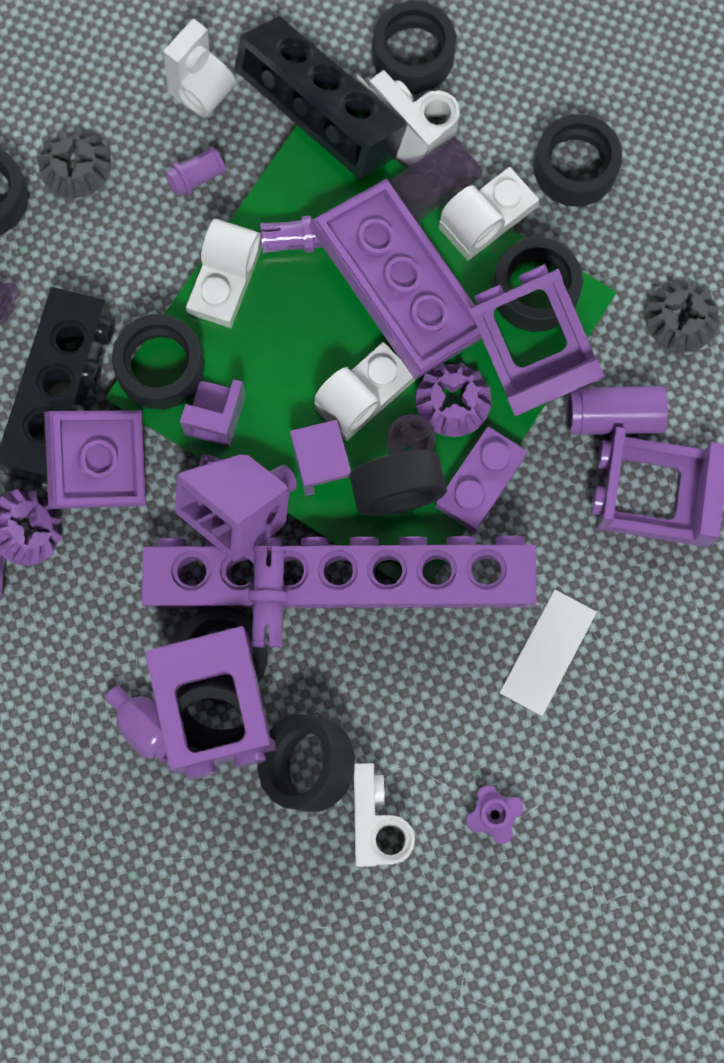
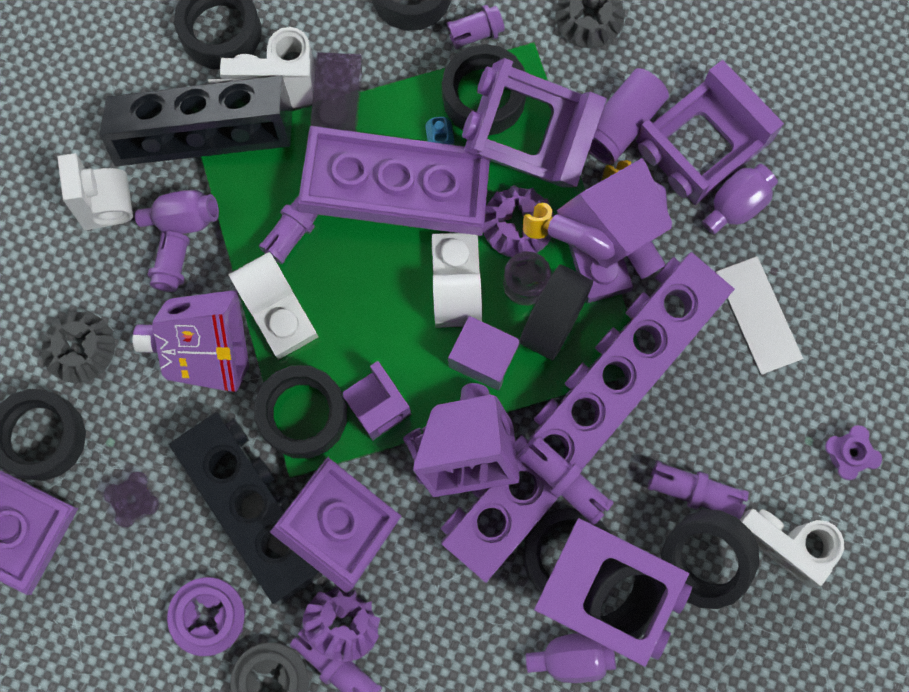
camera: 45 degrees left, 0 degrees up
(149, 243) = (198, 340): none -> medium lavender torso
(239, 146) = (180, 212): none -> medium lavender plant
(358, 714) = (697, 490): none -> medium lavender pin
(475, 280) = (440, 130): none -> dark azure rock
(481, 216) = (396, 79): white plate -> none
(512, 464) = (611, 218): none -> medium lavender torso
(589, 237) = (476, 27): none -> medium lavender pin
(631, 558) = (741, 197): none -> medium lavender plant

